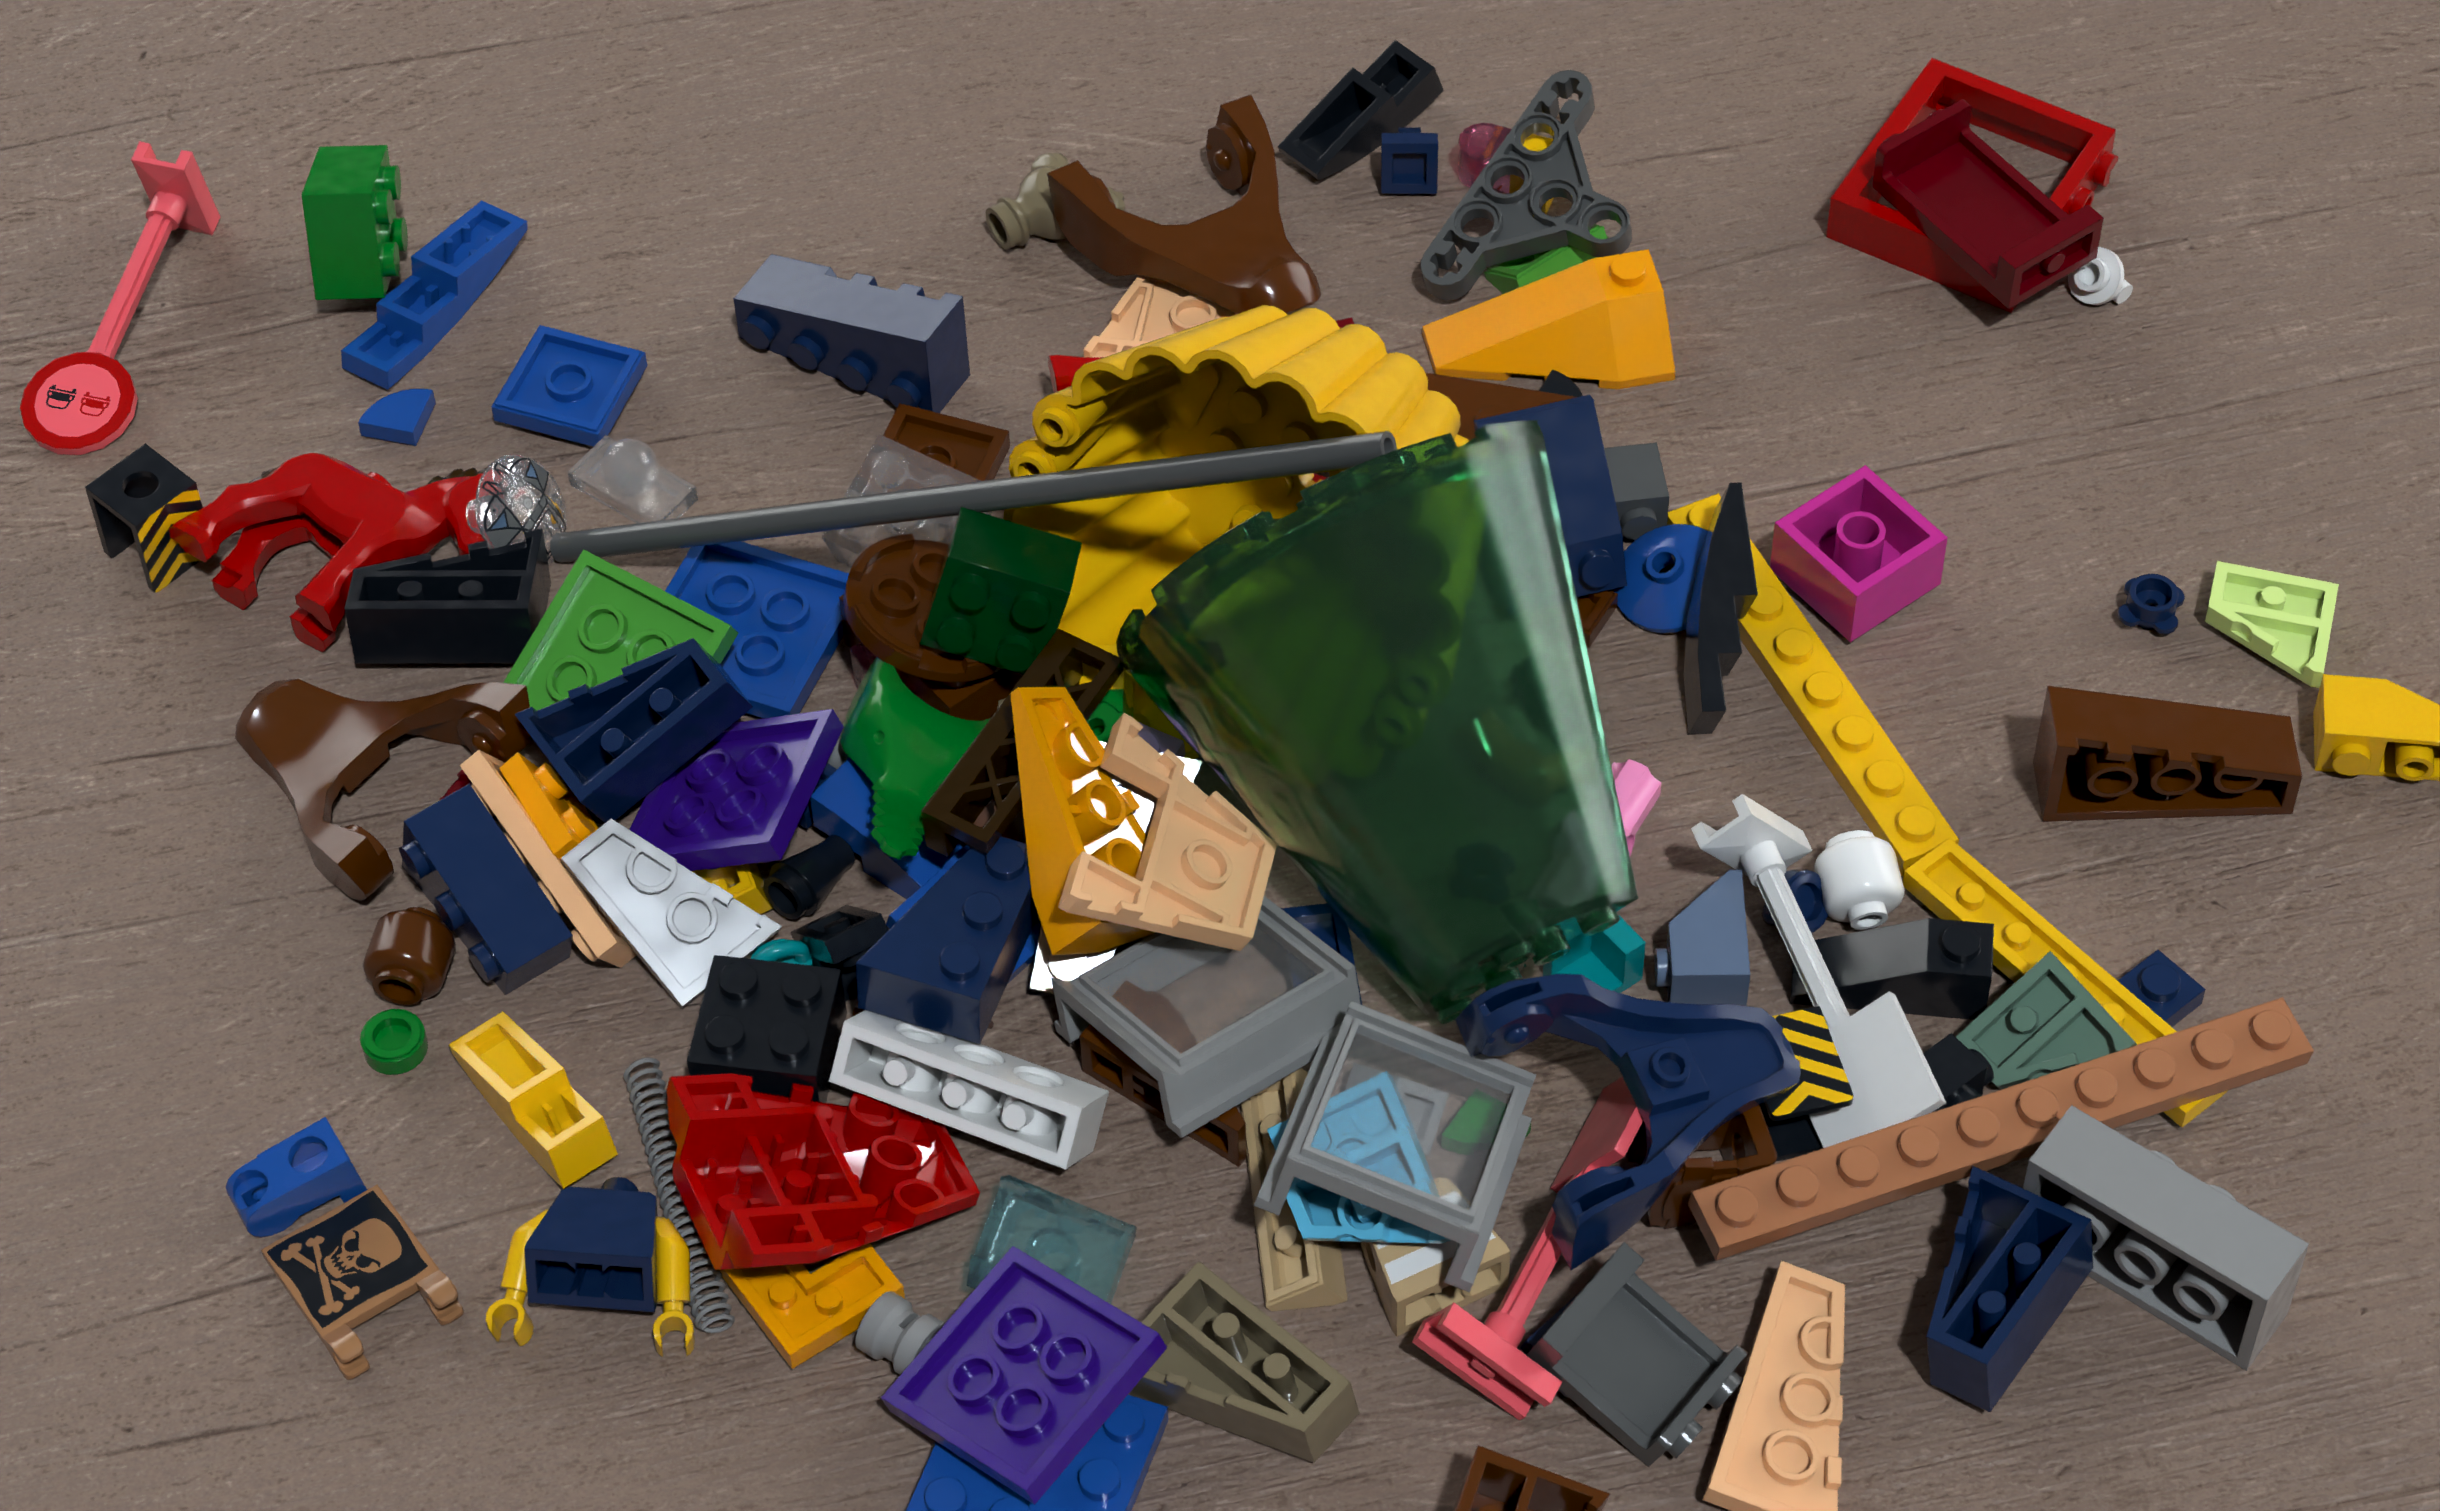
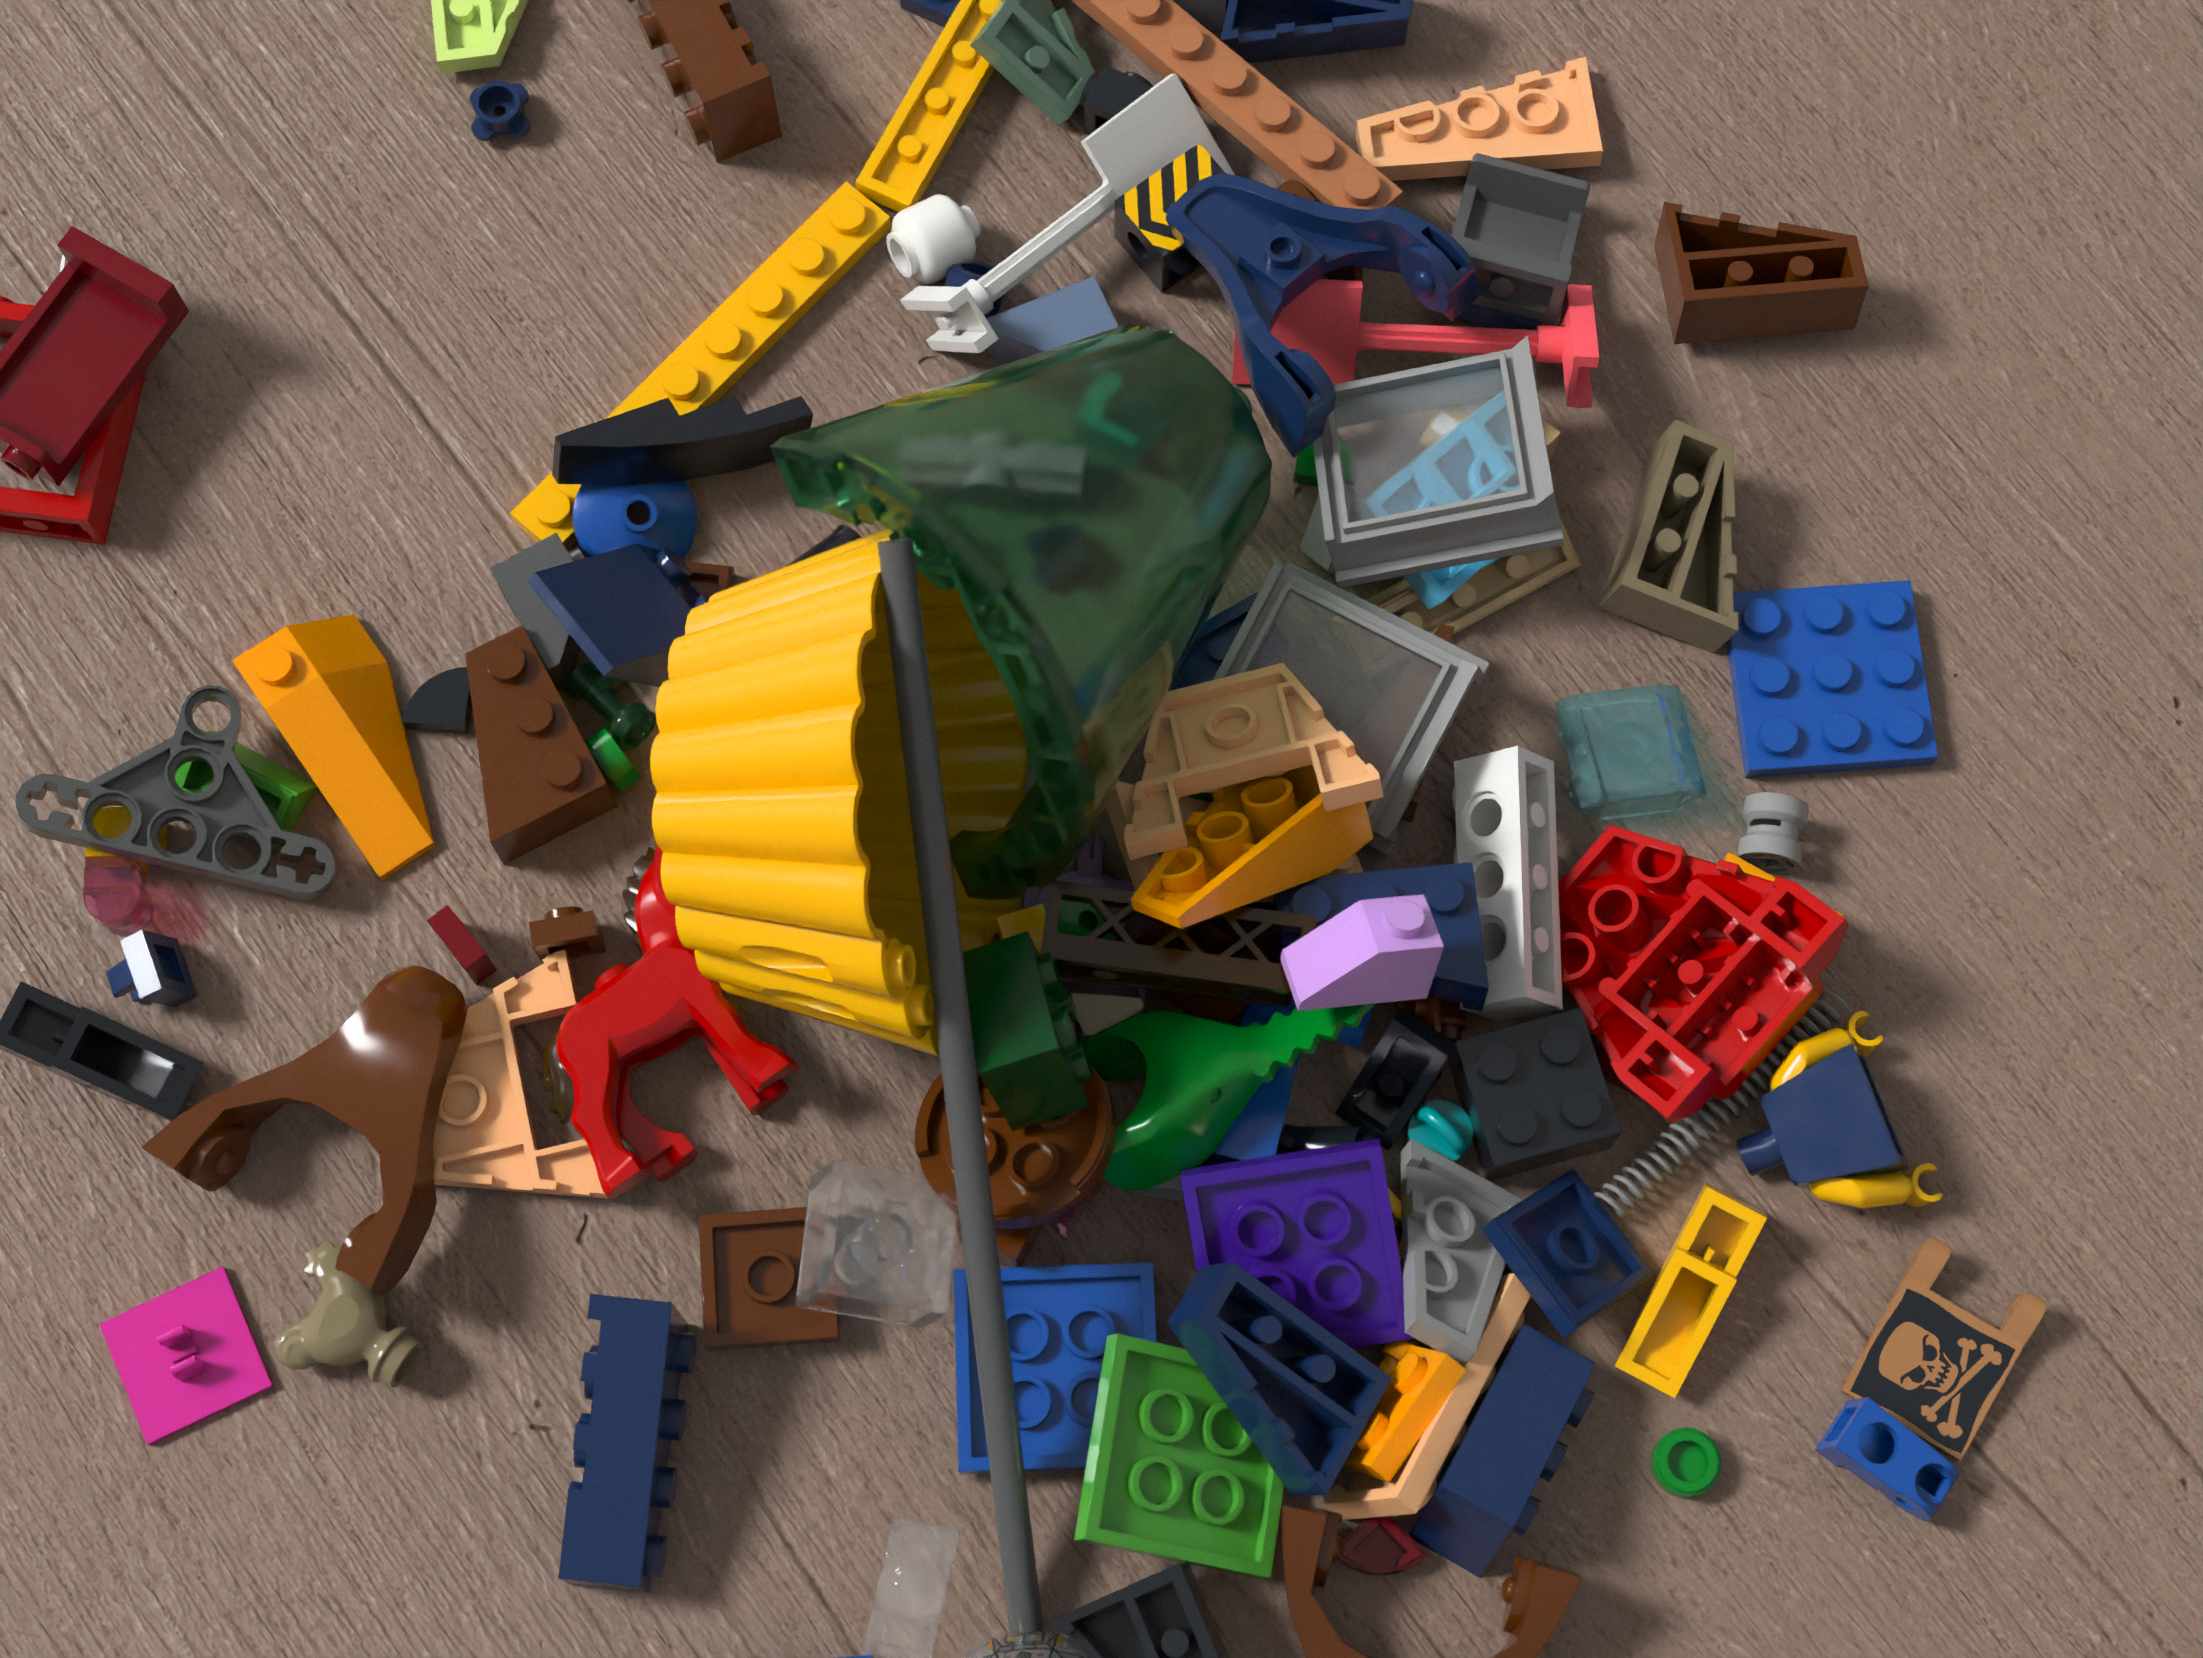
camera: 115 degrees left, 20 degrees up
(409, 955) = (1601, 1489): reddish brown head -> none
(615, 1003) = (1567, 1252): none -> dark blue plate
(919, 844) = (1366, 955): none -> lavender slope
(1024, 1374) = (1790, 686): dark purple plate -> none
(1091, 119) = (186, 1355): none -> dark pink piece
(1858, 553) = (554, 350): dark pink brick -> none
(1926, 963) = (1011, 172): black slope -> none

